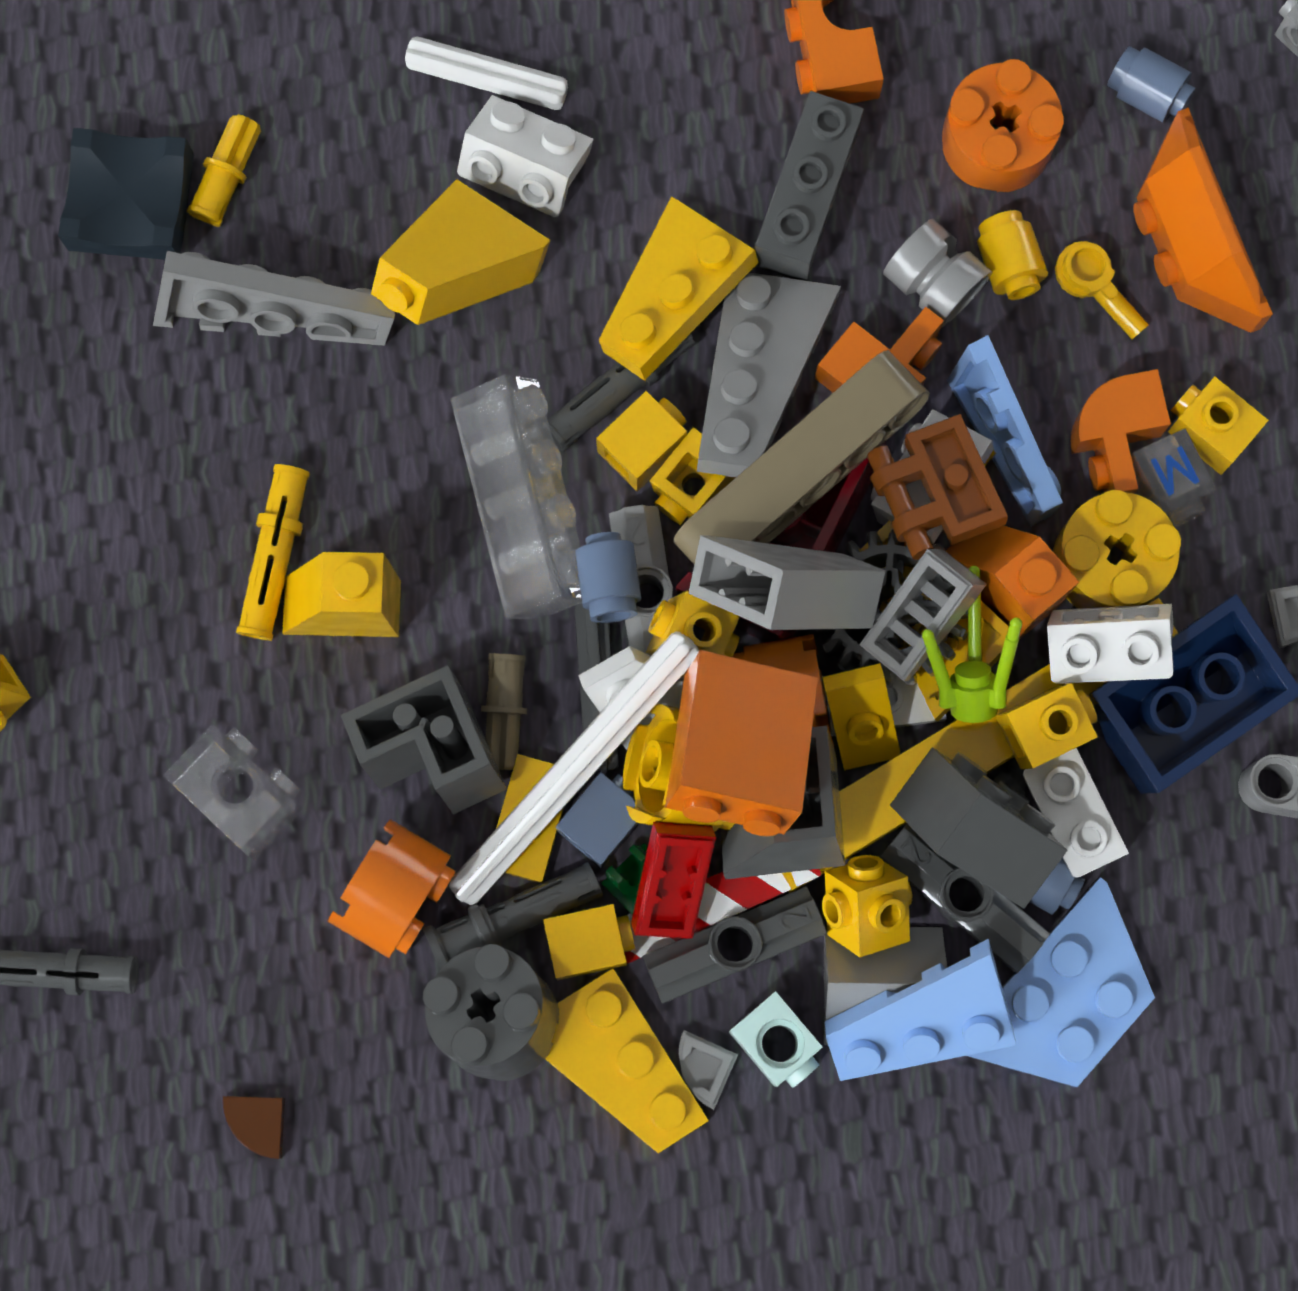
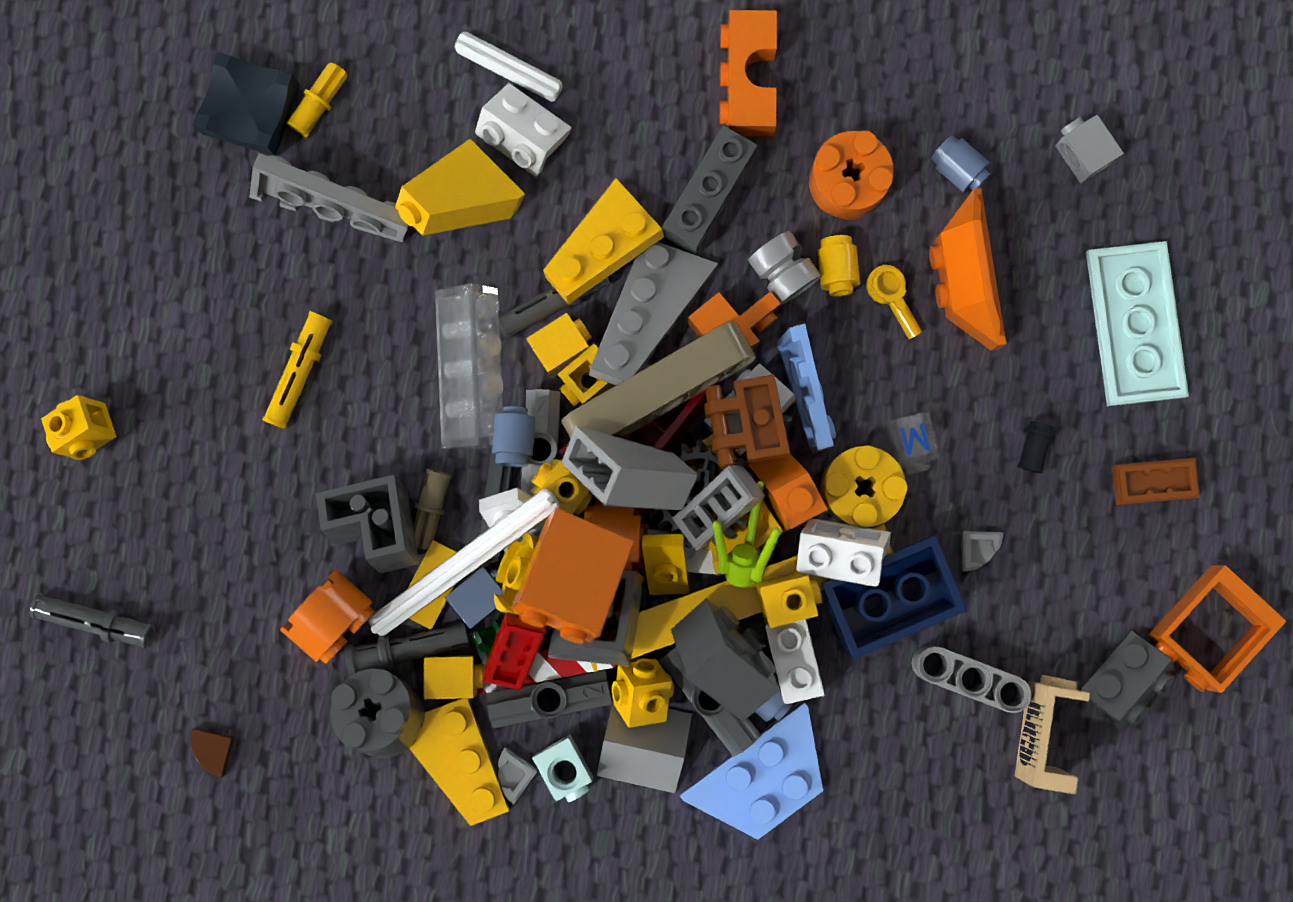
camera: 15 degrees right, 5 degrees up
(203, 777) = (218, 517): clear brick -> none
(343, 596) = (337, 413): yellow slope -> none
(937, 1019) = (666, 779): light blue wing -> none
(1118, 414) = (882, 391): orange brick -> none
(1217, 423) = (952, 410): yellow brick -> none

